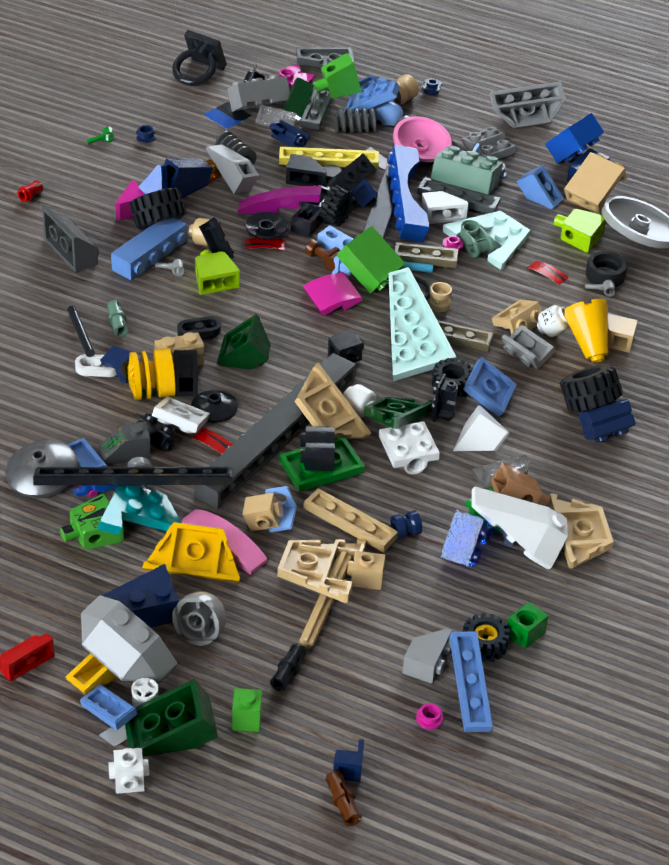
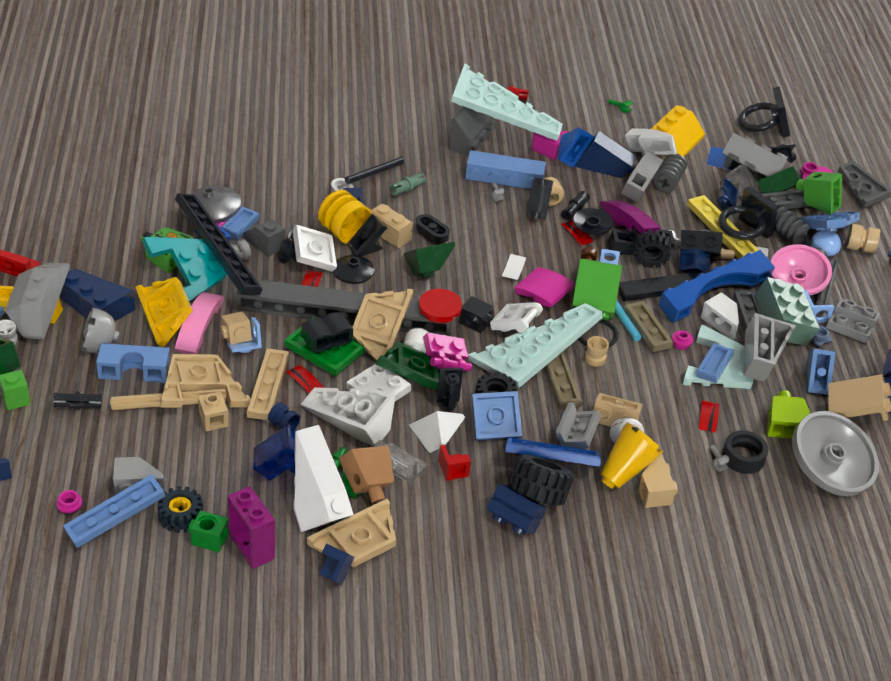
camera: 60 degrees right, 0 degrees up
(72, 200) = (496, 101): none -> light aqua wing
(145, 134) = (646, 122): dark blue plate -> none
(157, 207) = (542, 151): black tyre -> none
(176, 124) = (684, 128): none -> yellow slope
(190, 139) = (650, 140): none -> white slope
(215, 272) = (505, 213): lime torso -> none
(232, 228) = (575, 205): none -> black pin
(248, 618) = (116, 359): none -> medium blue arch
(286, 302) = (514, 266): none -> white sticker
(305, 171) = (685, 216): black slope -> none
(335, 359) = (440, 305): none -> red tile
(336, 127) = (755, 212): none -> black tile
(354, 494) = (304, 378): none -> red sticker
(364, 327) = (511, 316): none -> white plate
(385, 384) = (444, 348): none -> dark pink plate
(434, 471) = (356, 412): none -> white wedge
(475, 238) = (698, 347): sand green piece -> none
(503, 238) = (714, 363): none -> medium blue tile
(510, 199) = (763, 345): none -> light grey wedge
(525, 441) = (454, 465): none -> red panel
(553, 371) = (553, 451): none -> blue tile
(564, 603) = (251, 524): none -> magenta window
(614, 554) = (336, 564): none -> dark blue panel

